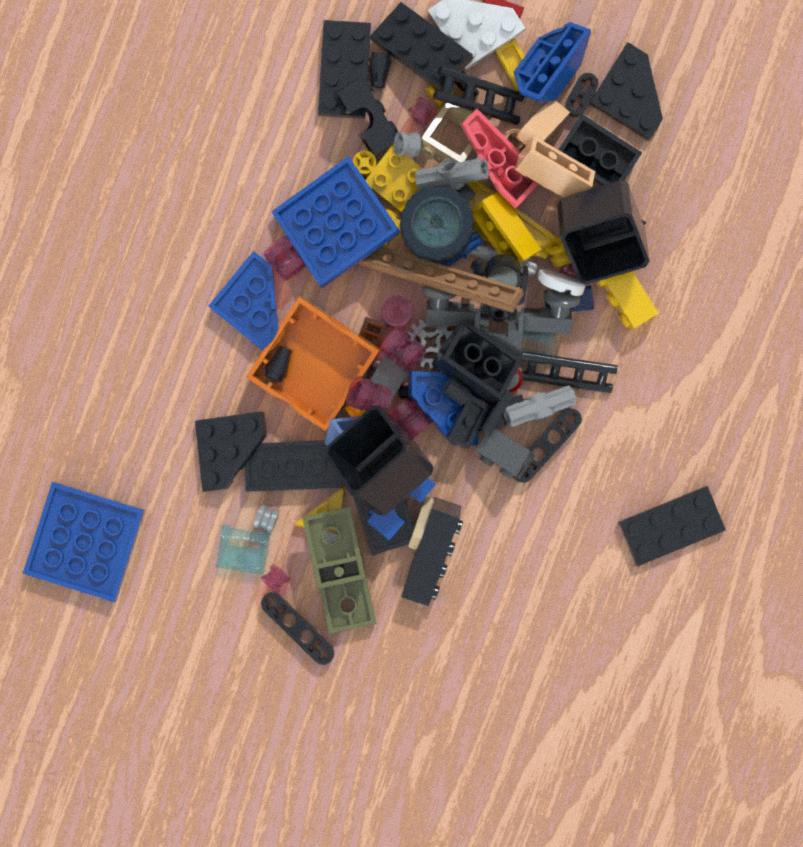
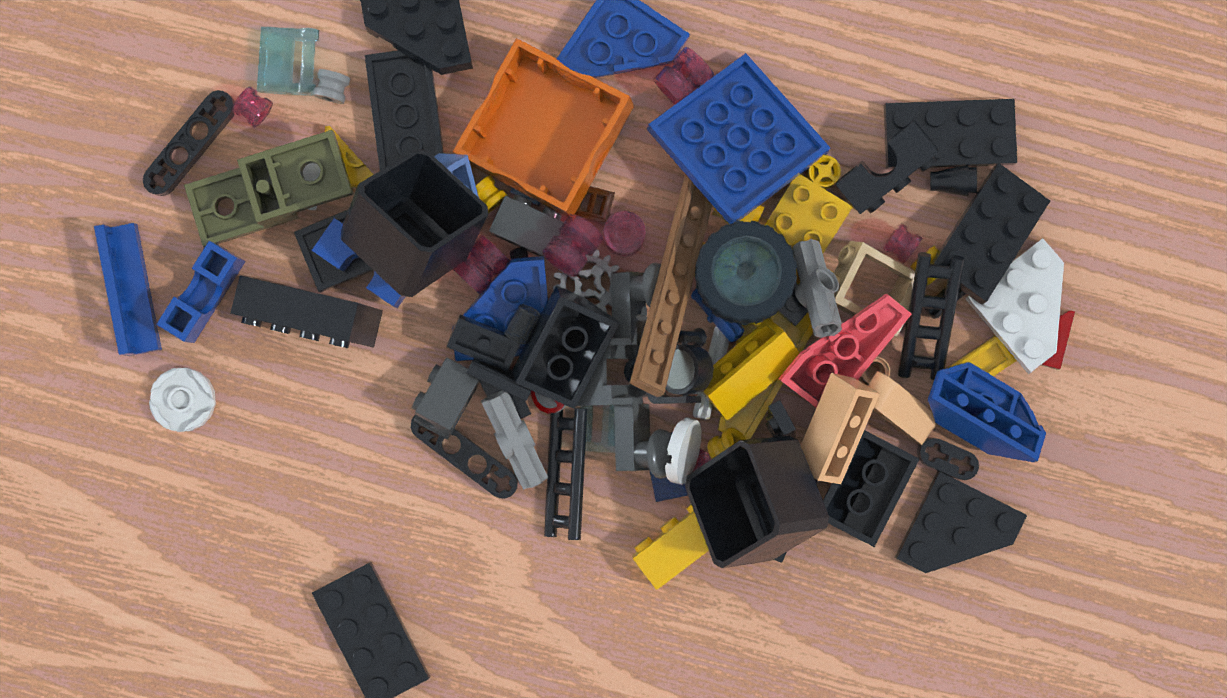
camera: 90 degrees right, 0 degrees up
(279, 364) = (537, 82): black cone -> none
(364, 394) = (504, 197): clear pink wheel -> none
(402, 682) = (128, 289): none -> blue fence
(407, 144) = (854, 225): light grey wheel -> none
(410, 626) = (213, 276): none -> blue arch
(421, 523) = (341, 292): tan tile -> none
(487, 650) = (182, 399): none -> white tile
(546, 212) = (779, 422): none -> black plate

